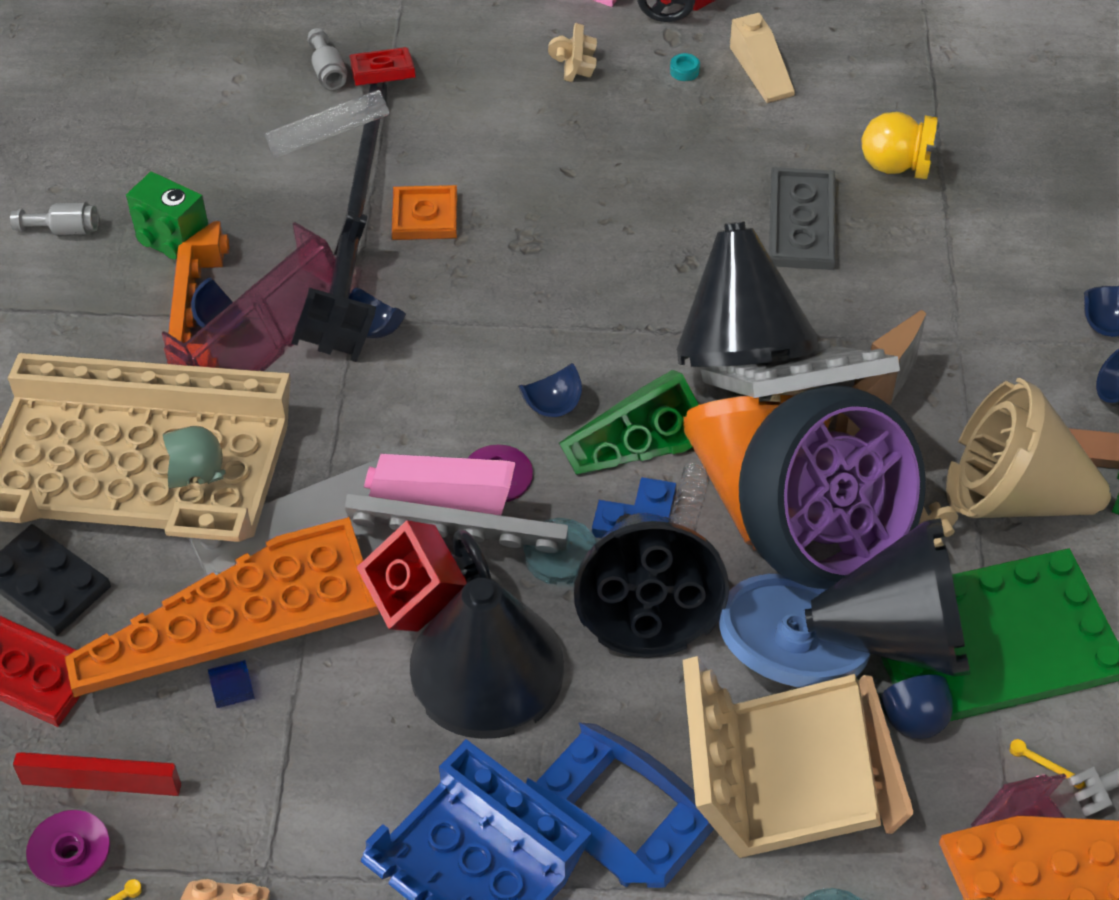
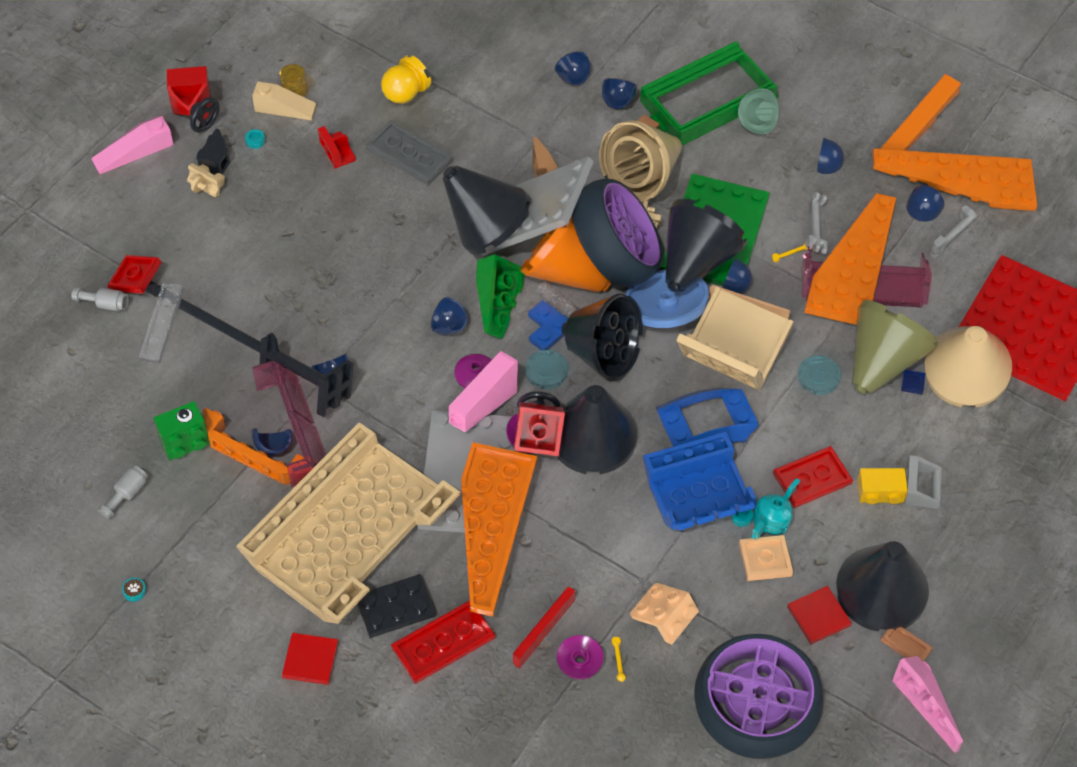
camera: 60 degrees left, 5 degrees up
(193, 453) = (382, 486): sand green helmet -> none
(231, 684) = (526, 547): clear blue tile -> none
(424, 212) = (265, 312): orange tile -> none
(507, 530) = (503, 405): light grey plate -> none
(624, 41) = (214, 153): none -> black slope
(738, 143) = (336, 147): none -> red panel
(799, 48) = (294, 79): none -> clear yellow wheel

